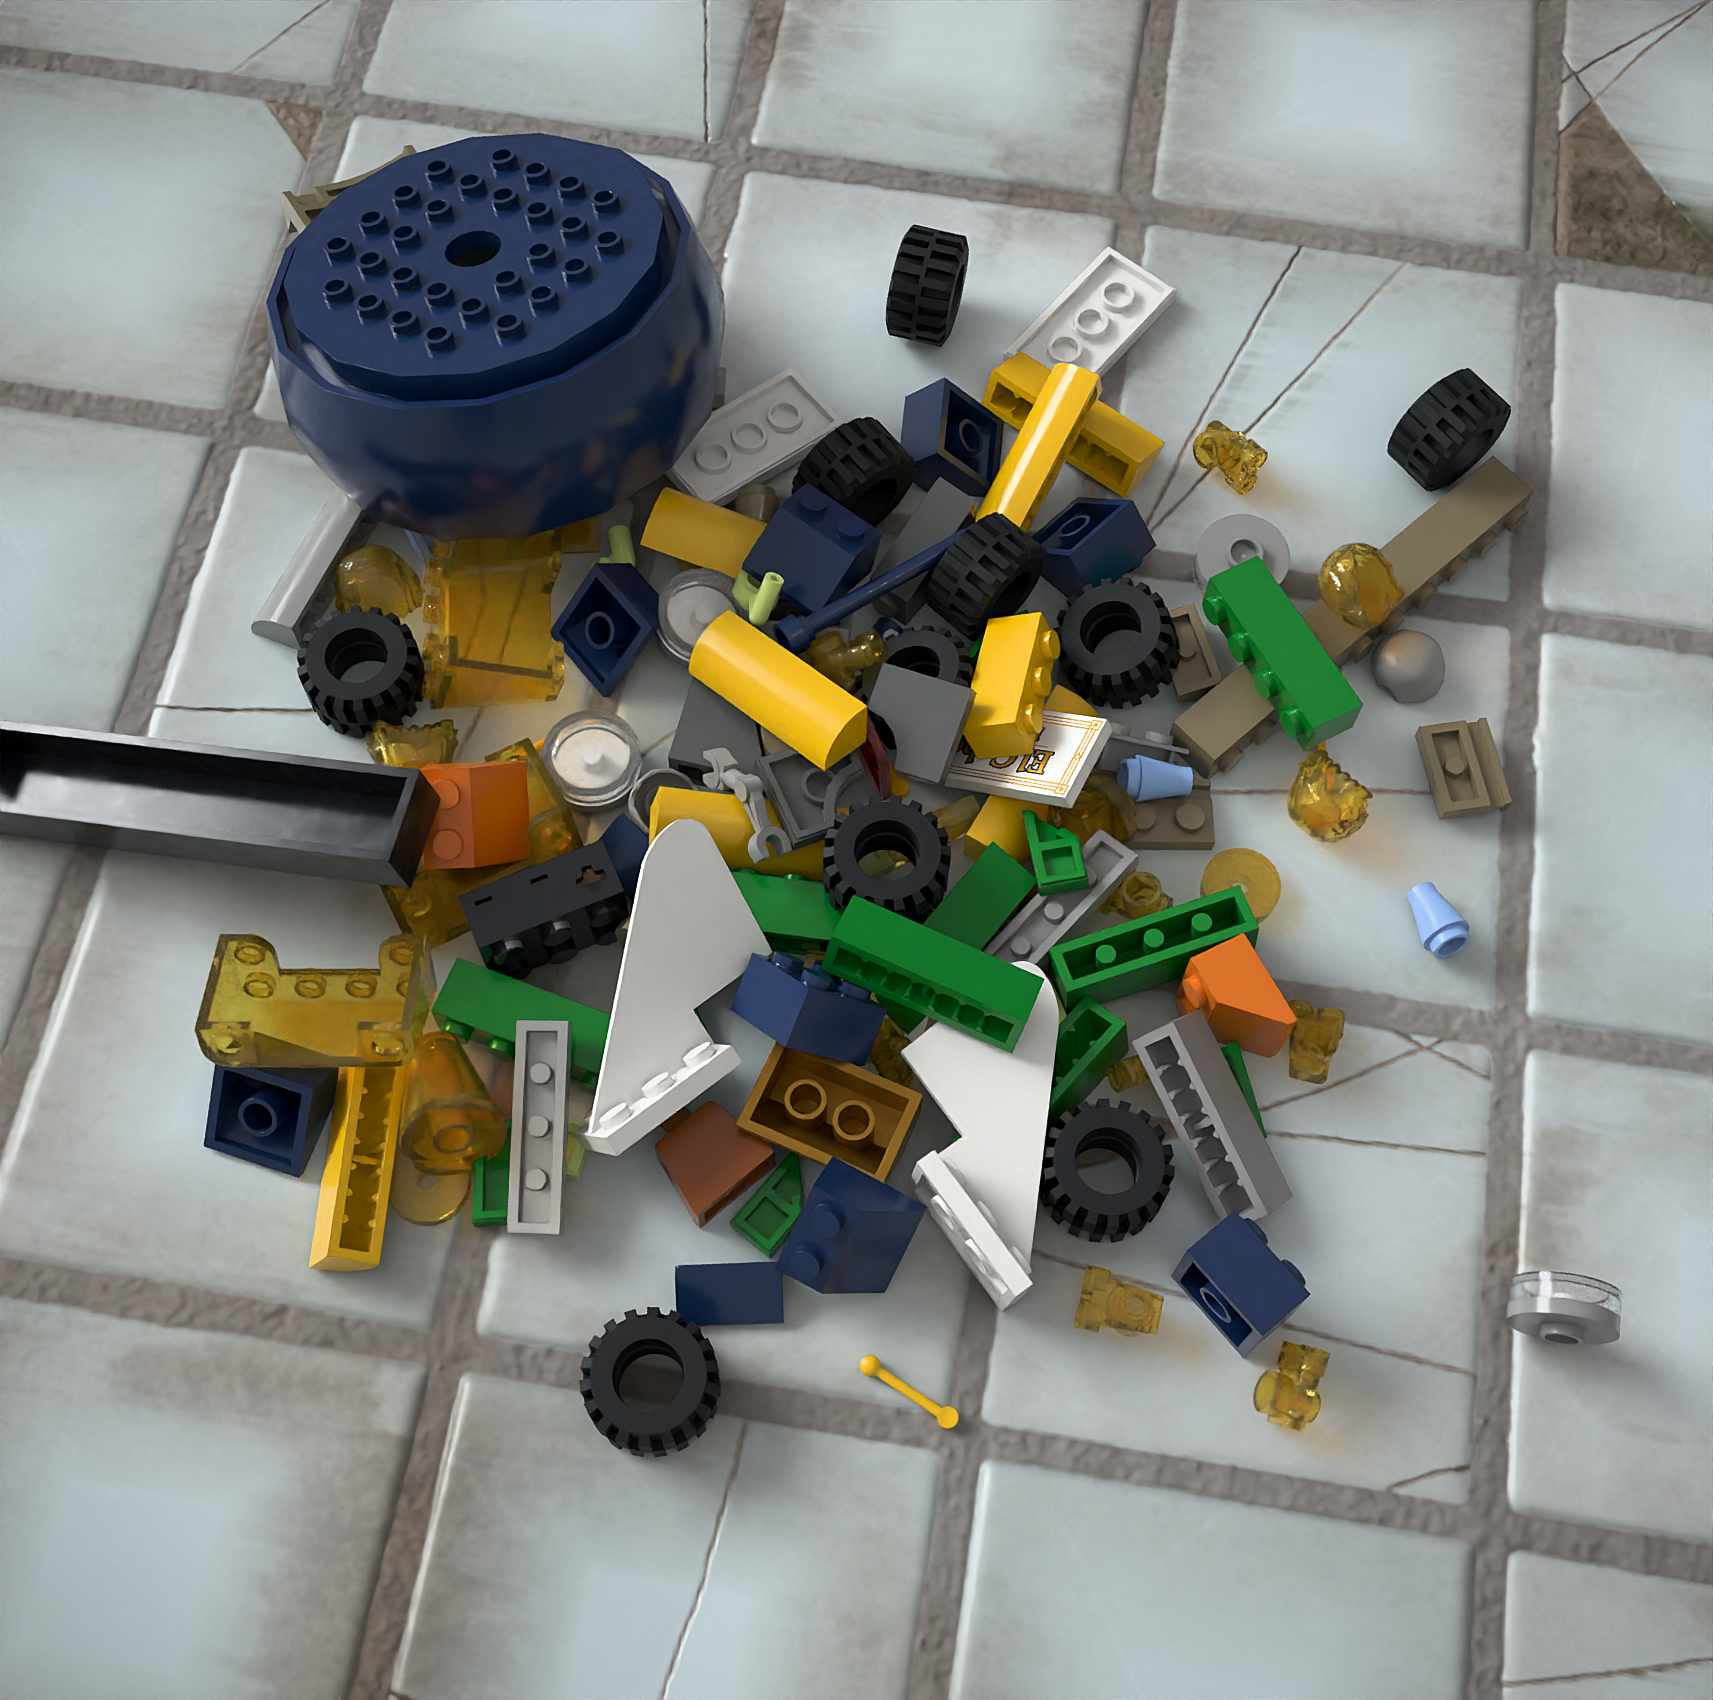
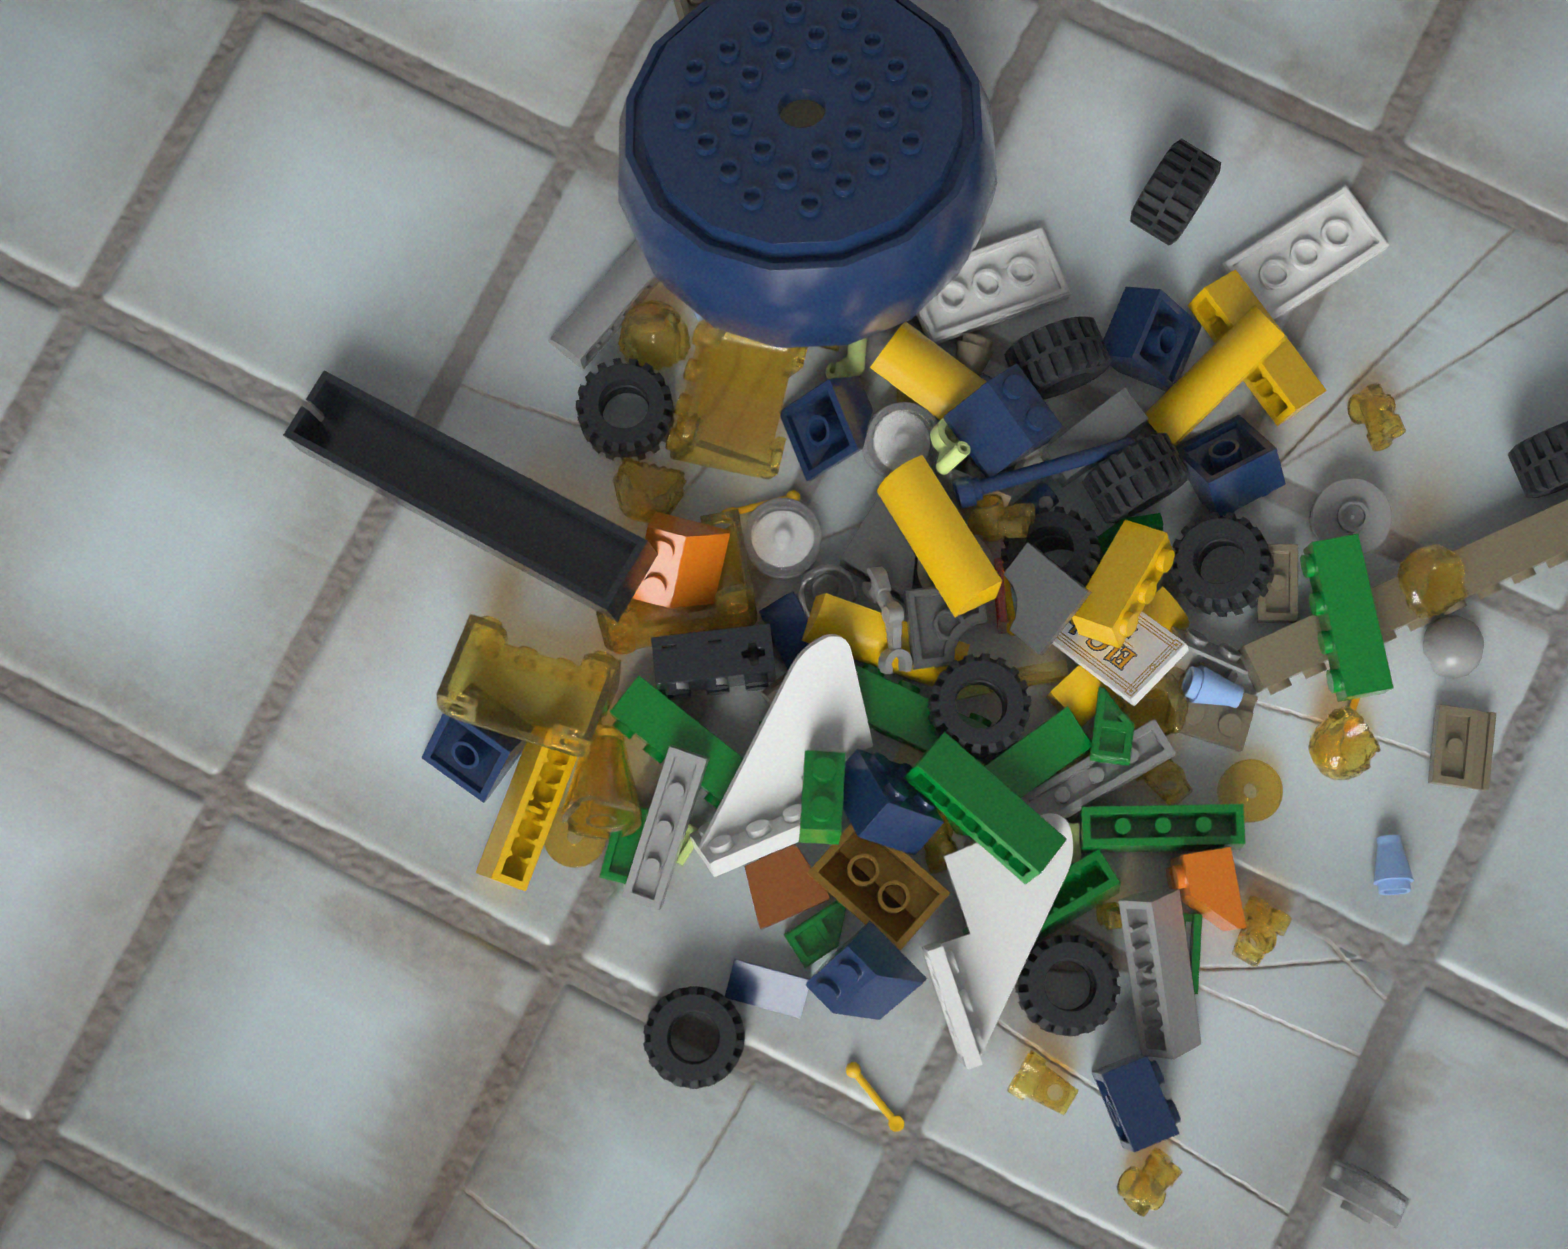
camera: 20 degrees right, 15 degrees up
(726, 1014) = (822, 797): none -> green brick

